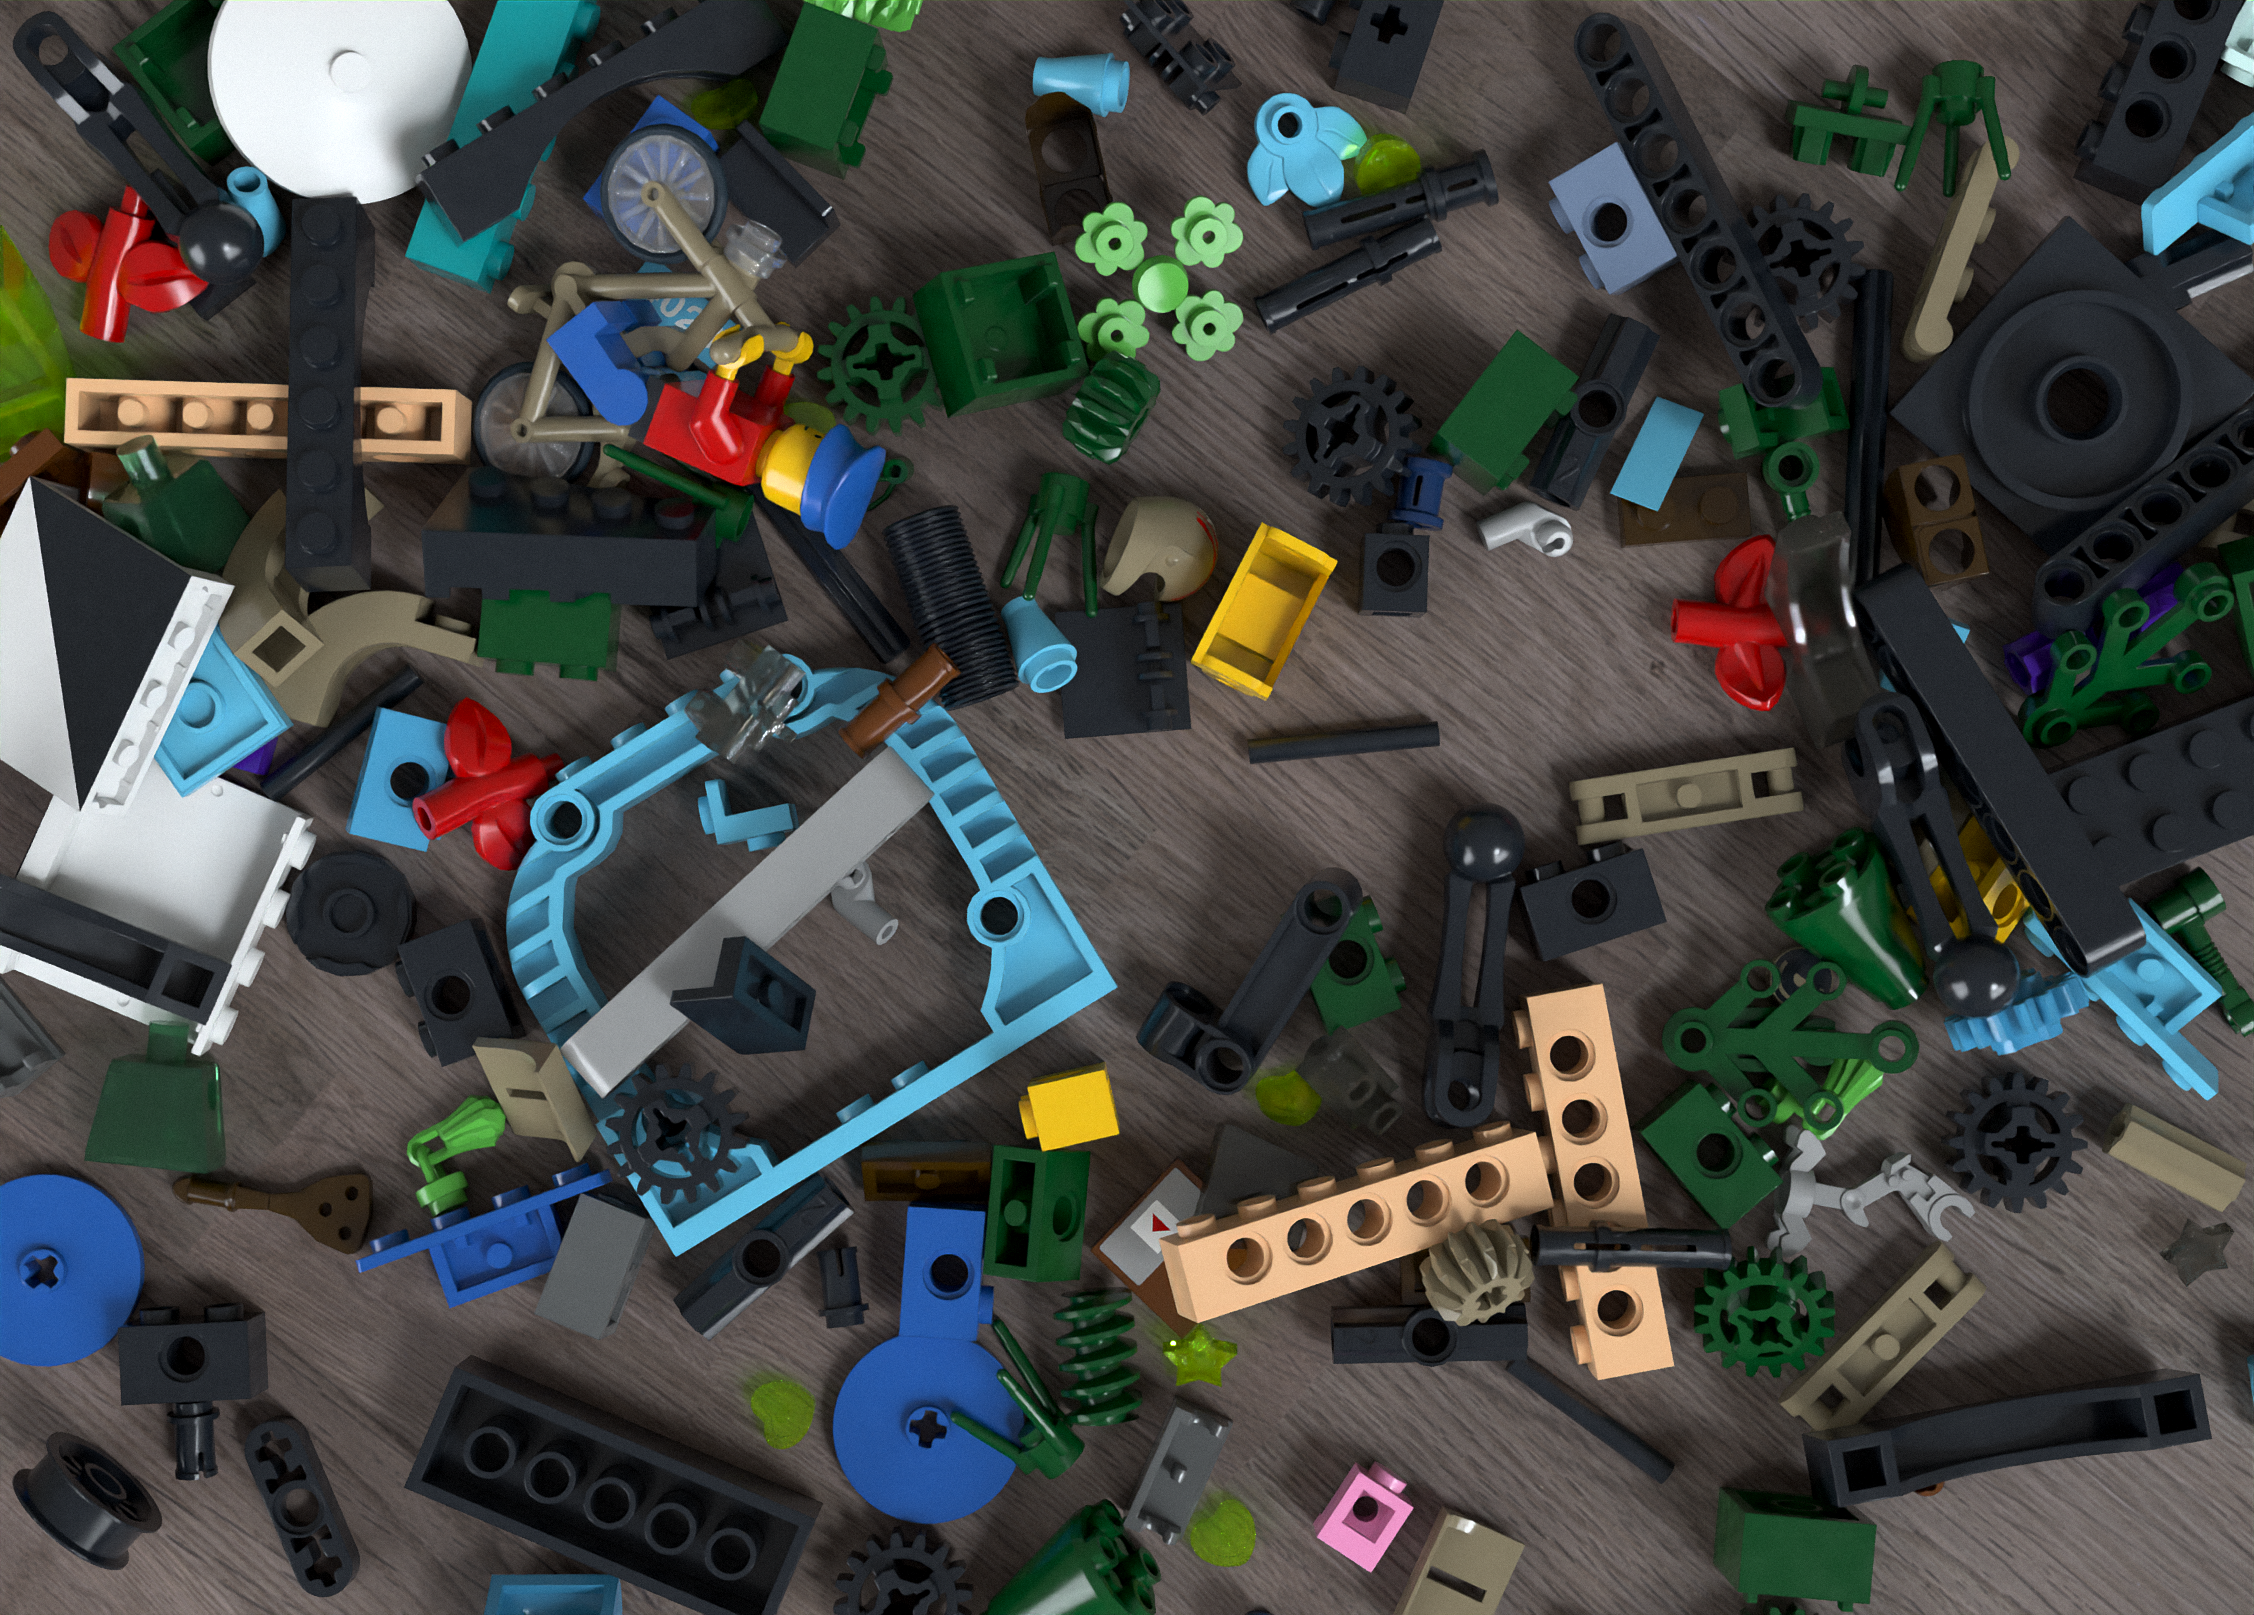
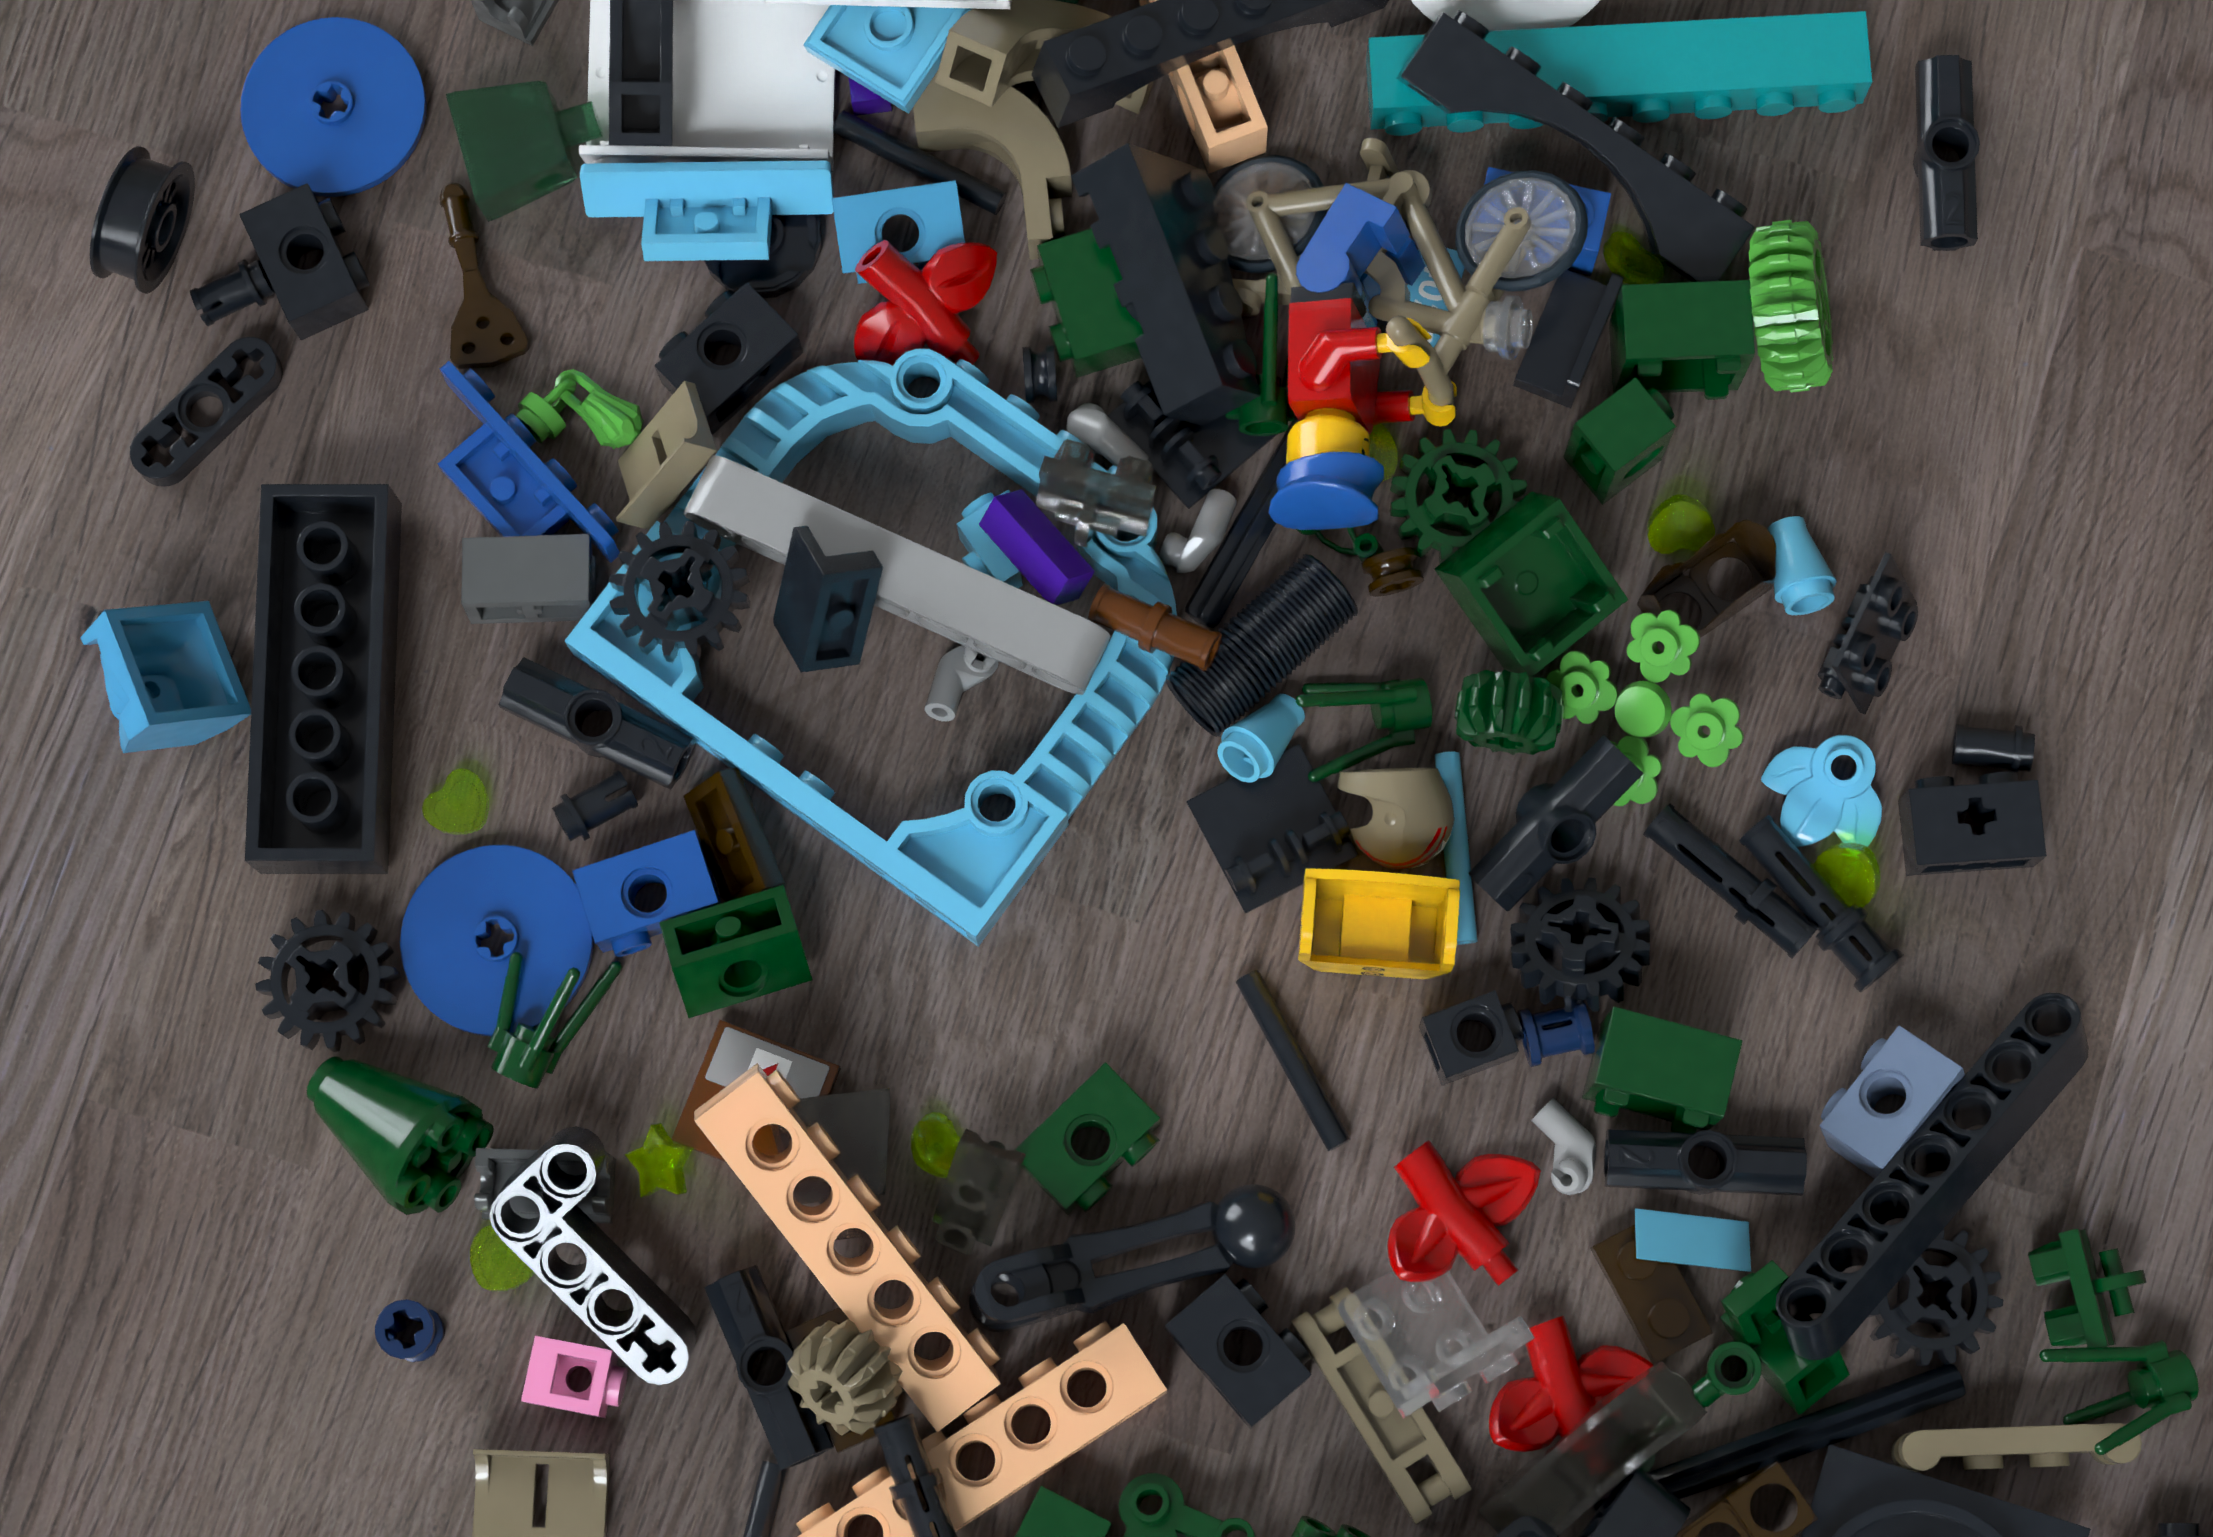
camera: 75 degrees right, 10 degrees down
(305, 955) = (707, 206): none -> medium azure bracket
(600, 705) = (1039, 373): none -> black bush
(686, 672) = (1099, 432): none -> light grey arm
(775, 780) = (1036, 547): none -> dark purple piece
(820, 614) = (1205, 536): none -> light grey arm
(898, 190) = (1620, 439): none -> dark green brick
(930, 457) = (1392, 571): none -> dark brown bush
(996, 173) = (1679, 524): none -> clear neon green piece
(1070, 1107) = (847, 939): yellow brick -> none
(1100, 1356) = (623, 1066): dark green piece -> none
(1189, 1027) = (964, 1026): black piece -> none
(1219, 512) = (1457, 847): none -> medium azure piece
(1232, 410) = (1555, 823): none -> black piece
(1356, 1433) = (606, 1263): none -> black beam
(1546, 653) = (1458, 1213): none -> red plant
(1650, 728) = (1427, 1340): none -> clear bracket

